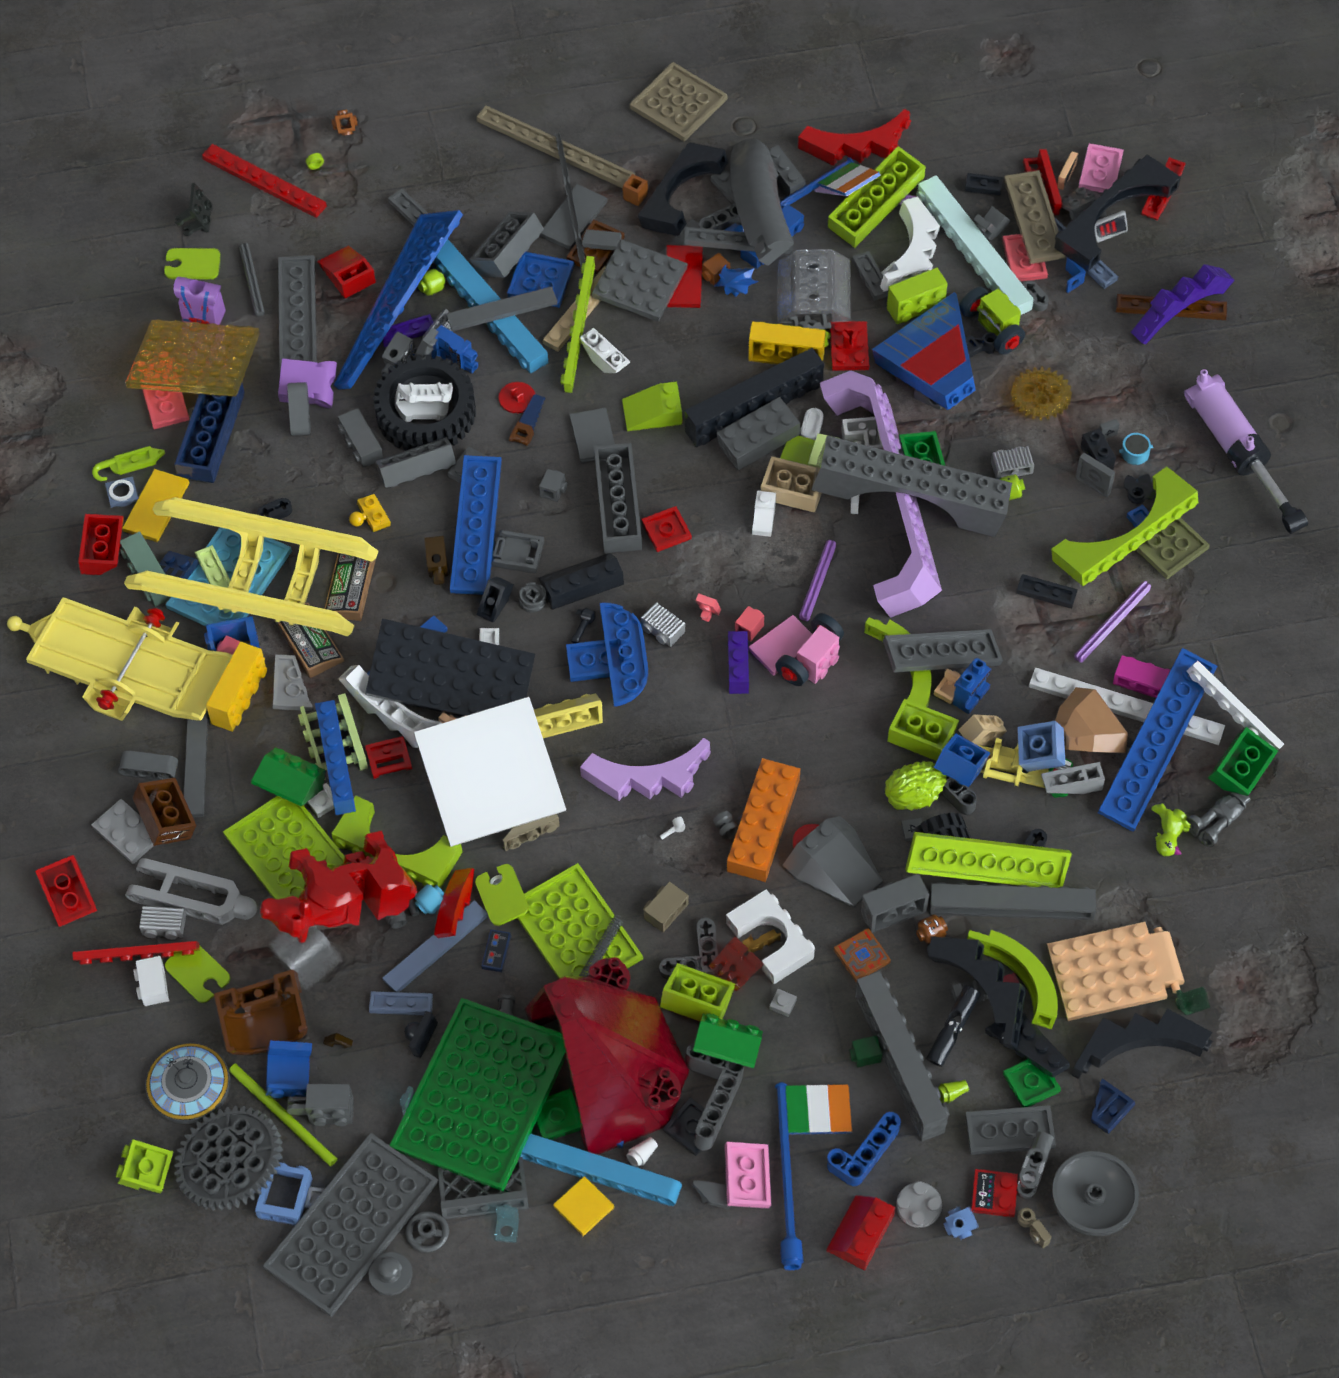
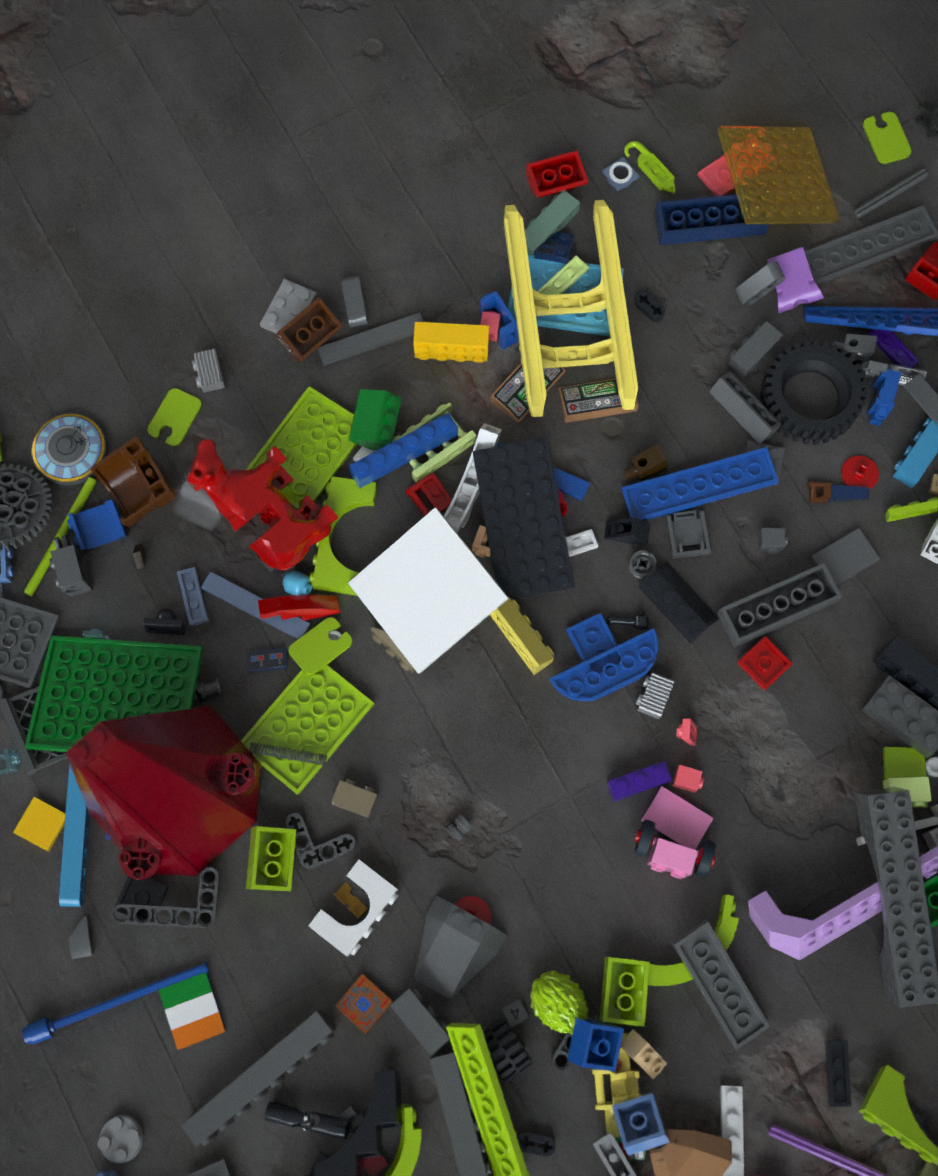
camera: 70 degrees right, 15 degrees up
(66, 890) = (215, 282): red slope -> none
(117, 654) = (447, 241): light yellow piece -> none
(128, 953) = (173, 361): red plate -> none
(152, 981) = (151, 383): white brick -> none
(158, 488) = (628, 206): yellow tile -> none
(199, 301) = (839, 155): medium lavender piece -> none
(234, 906) = (243, 422): light grey piece -> none
(288, 685) = (473, 385): light grey wing -> none
(371, 512) = (679, 391): yellow plate -> none
(423, 401) = (814, 390): white piece -> none
(641, 1152) = (103, 858): white cone -> none
(648, 780) = (495, 761): lavender arch -> none
(653, 407) = (898, 604): lime slope -> none
(679, 826) = (445, 782): white hand -> none
(728, 1040) = (225, 904): green slope -> none
(745, 965) = (319, 890): clear red legs -> none
(747, 1175) = (104, 965): bright pink plate -> none
(763, 820) = (475, 862): orange brick -> none
(764, 513) = (818, 752): white arch -> none
(783, 1002) = (291, 942): light grey plate -> none
(791, 484) = (860, 766): tan brick -> none
(817, 580) = (762, 830): medium lavender axle -> none
(861, 1230) = (77, 1091): red slope -> none
(865, 1051) = (260, 1039): dark green brick -> none
(868, 1147) = (163, 1071): blue beam -> none
(931, 927) = (407, 1066): dark orange head -> none
(946, 688) = (686, 1002): light nougat bracket -> none
(952, 1090) = (243, 1137): lime cone -> none
(971, 686) = (691, 1026): blue hips -> none

